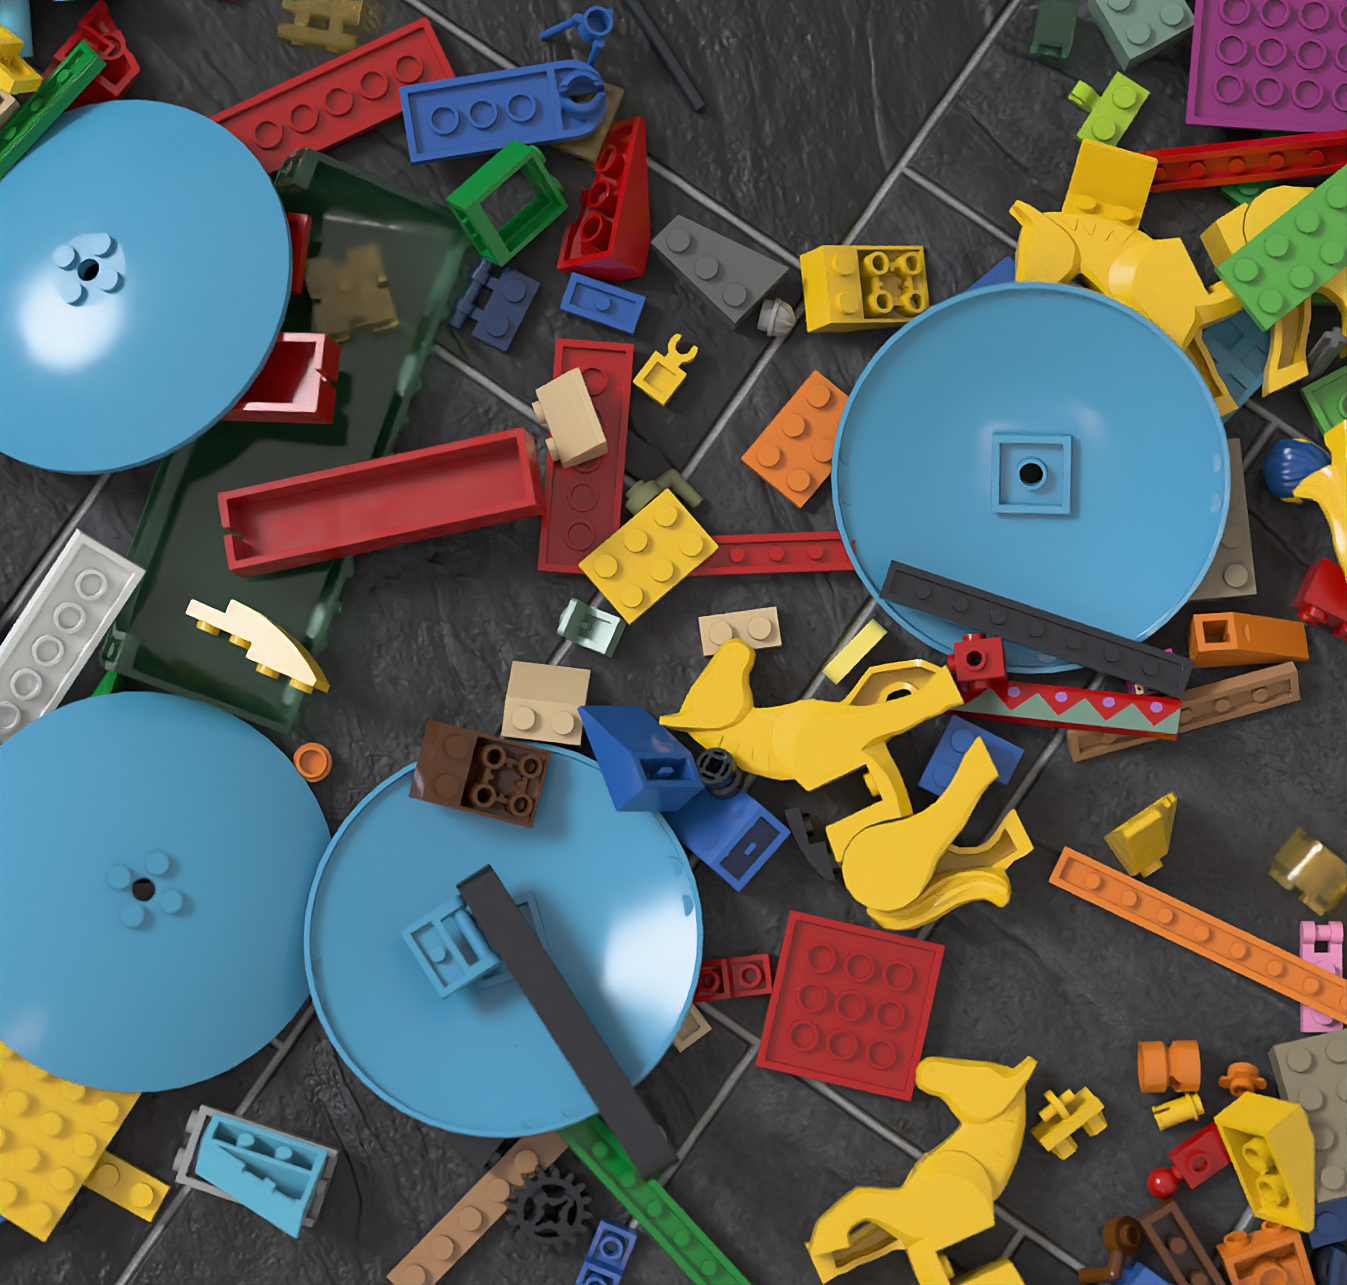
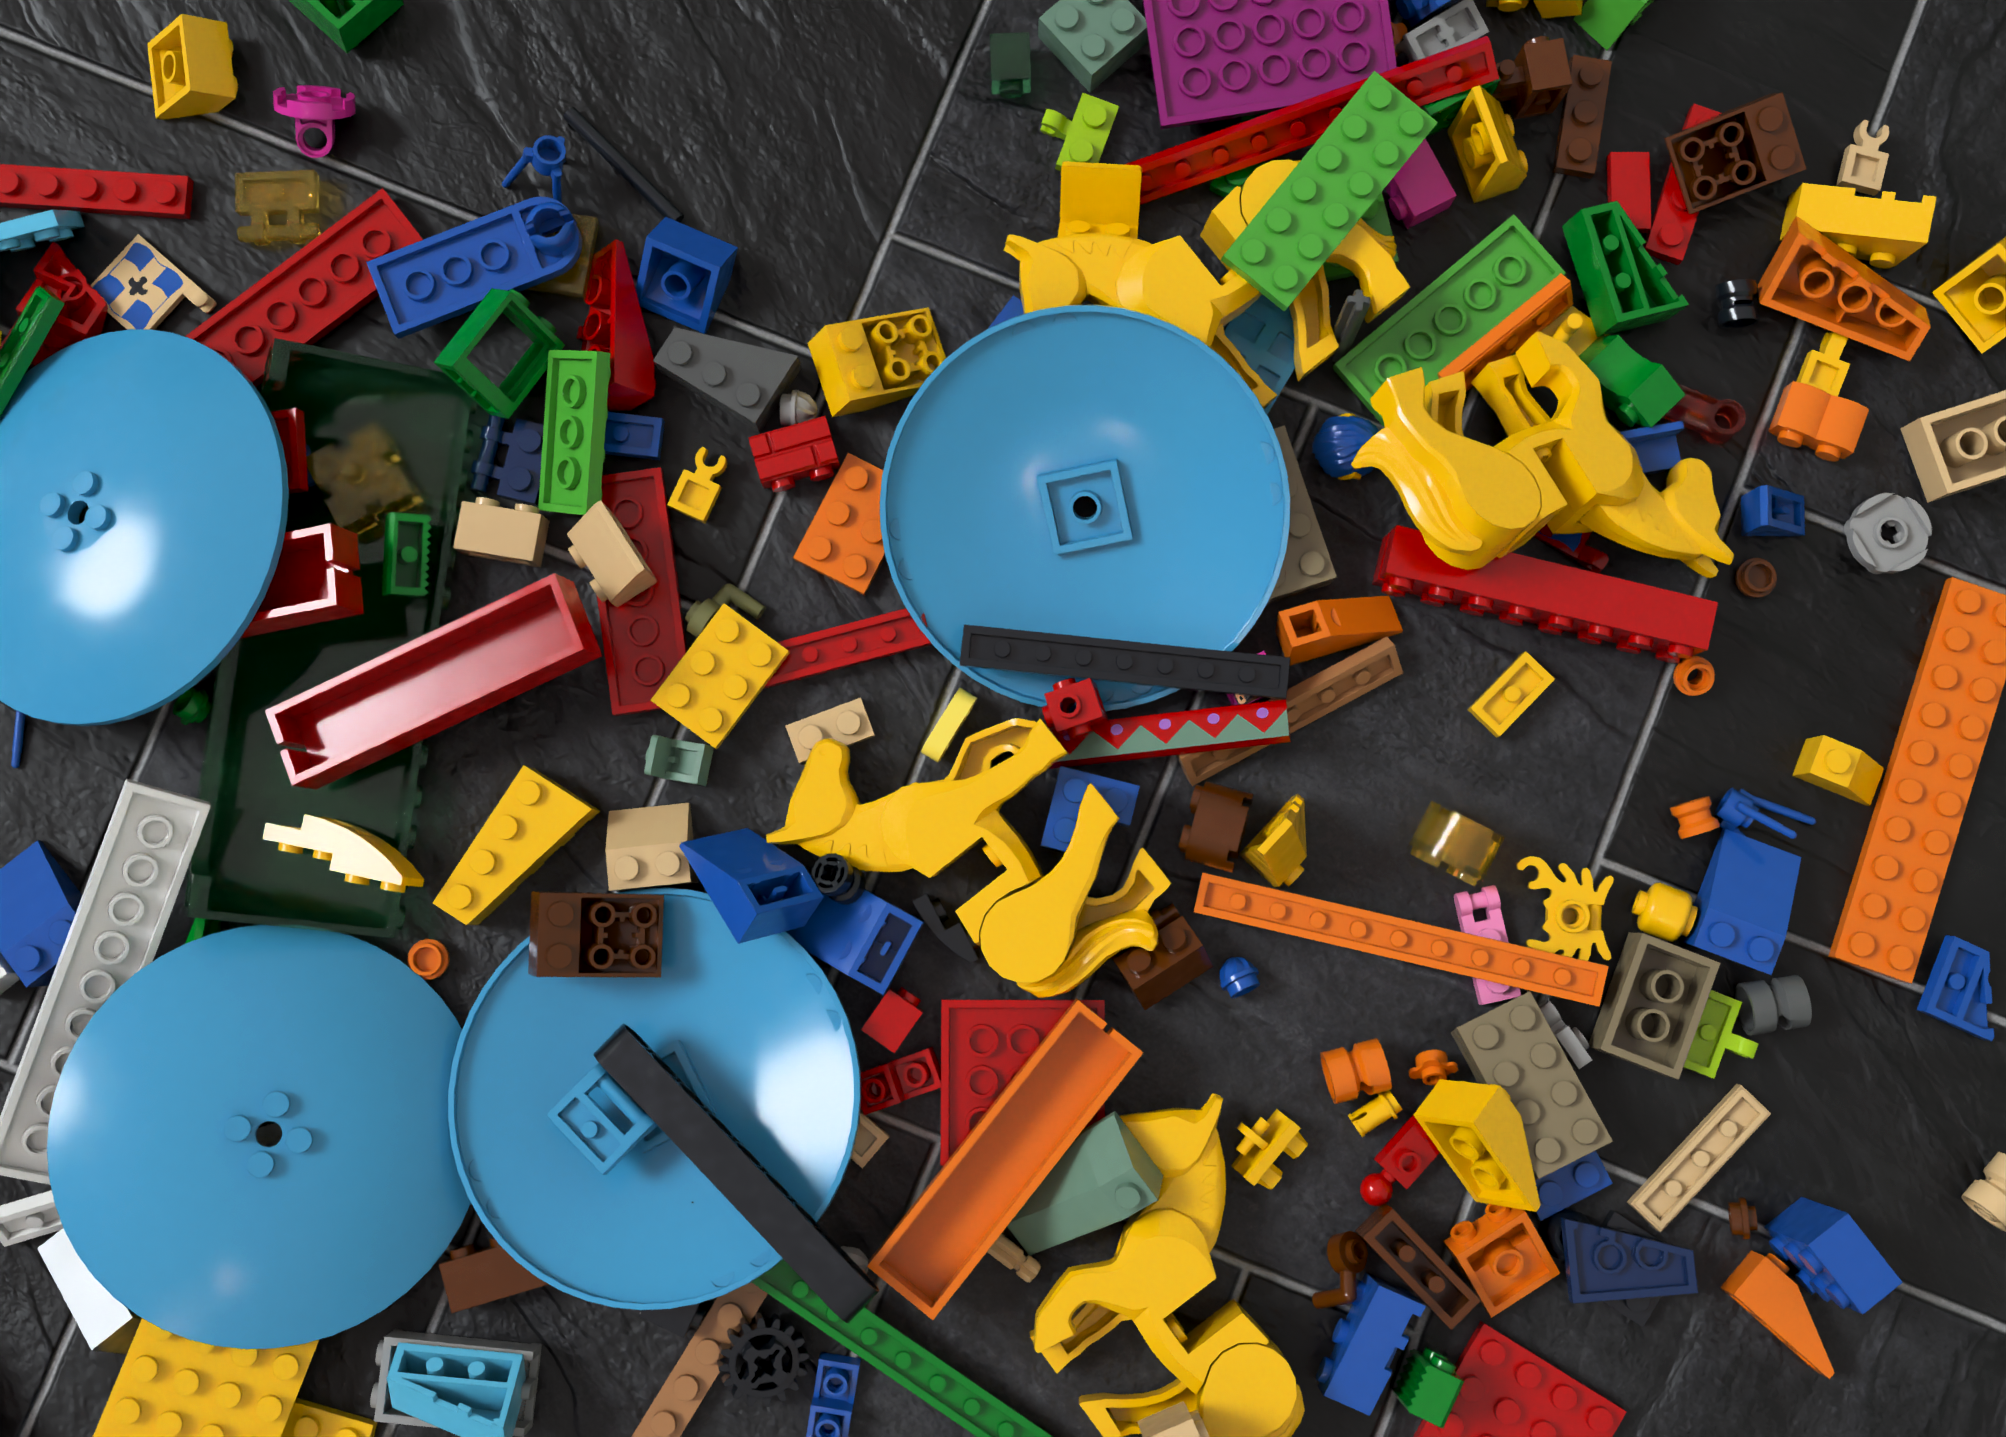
camera: 15 degrees left, 0 degrees up
(141, 476) = (192, 706): none -> green plate
(179, 61) = (146, 287): none -> tan flag
(309, 1070) = (483, 1276): none -> reddish brown brick
(376, 375) = (405, 555): none -> green brick
(422, 668) = (515, 841): none -> yellow wedge
(469, 372) = (501, 532): none -> tan brick
(561, 293) = (574, 430): none -> bright green plate
(696, 163) = (684, 274): none -> blue slope
(741, 917) = (893, 1018): none -> red brick
(765, 359) = (795, 454): none -> red brick
(797, 1160) = (1013, 1257): none -> tan axle
(820, 1069) = (1004, 1159): none -> orange piece
(892, 1116) = (1090, 1187): none -> sand green wedge
(1009, 928) = (1170, 965): none -> reddish brown brick
(1077, 953) = (1238, 977): none -> blue plate
(1089, 804) = (1216, 827): none -> reddish brown brick

